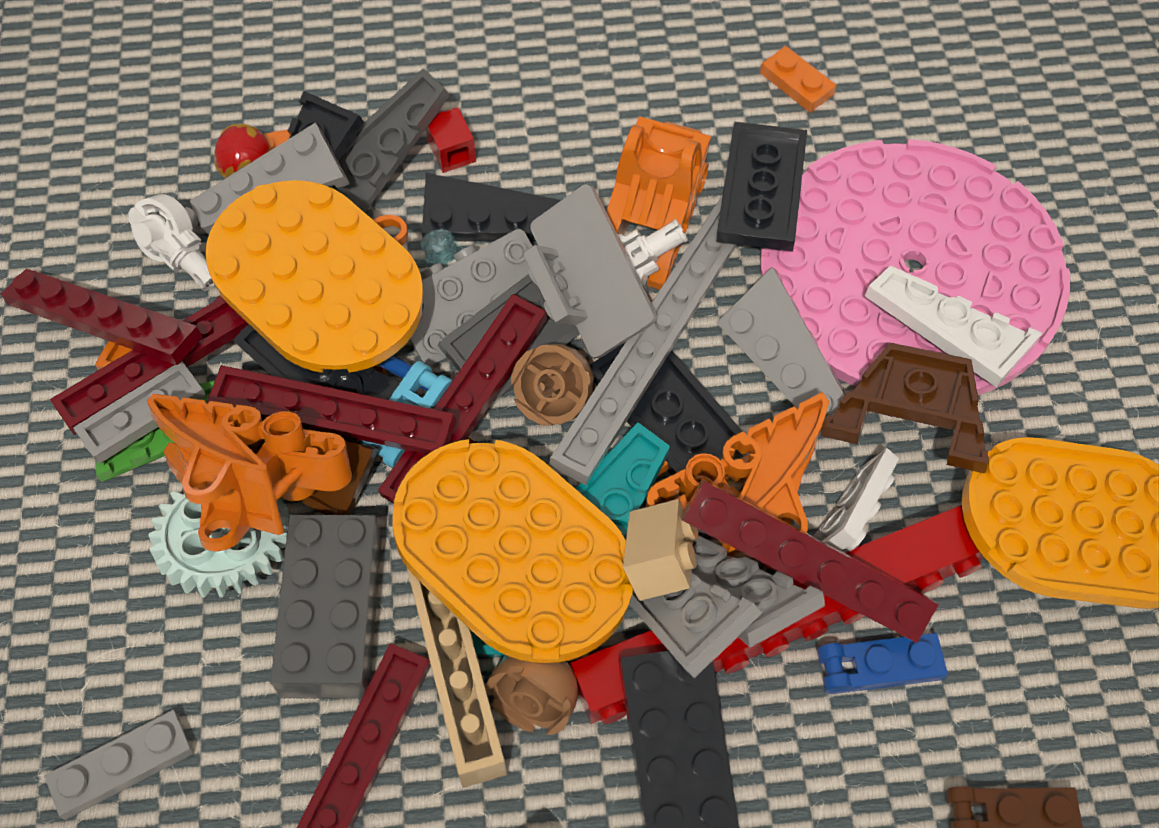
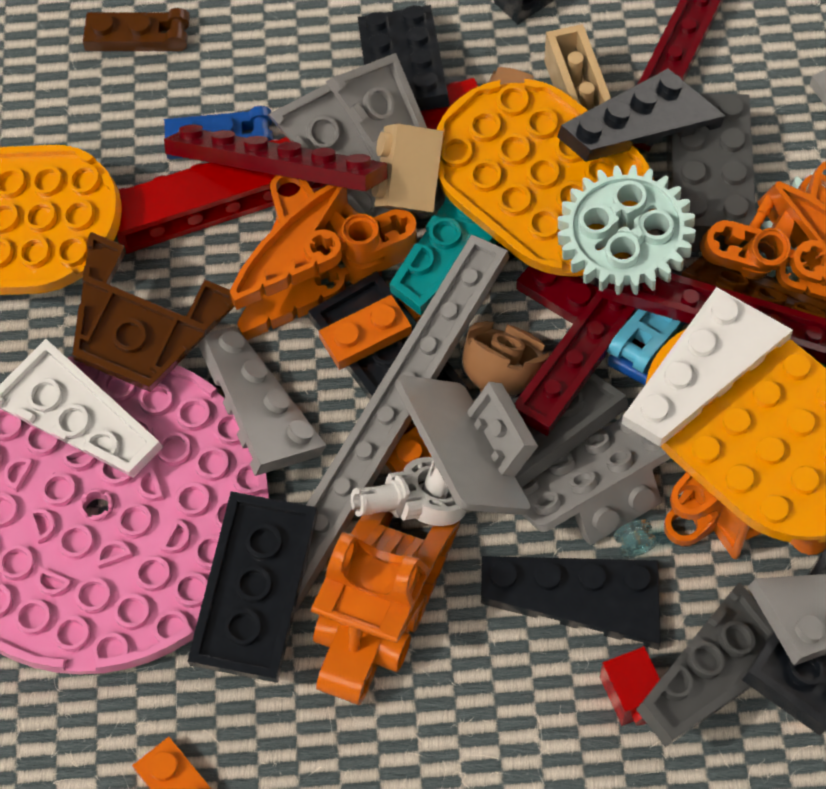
camera: 175 degrees left, 0 degrees up
(360, 309) = (703, 364): none -> white wing
(394, 609) = (640, 115): none -> black wing
(427, 455) = (626, 229): none -> light aqua gear
(690, 410) = (365, 332): none -> orange plate
(859, 503) = (222, 233): white wing -> none

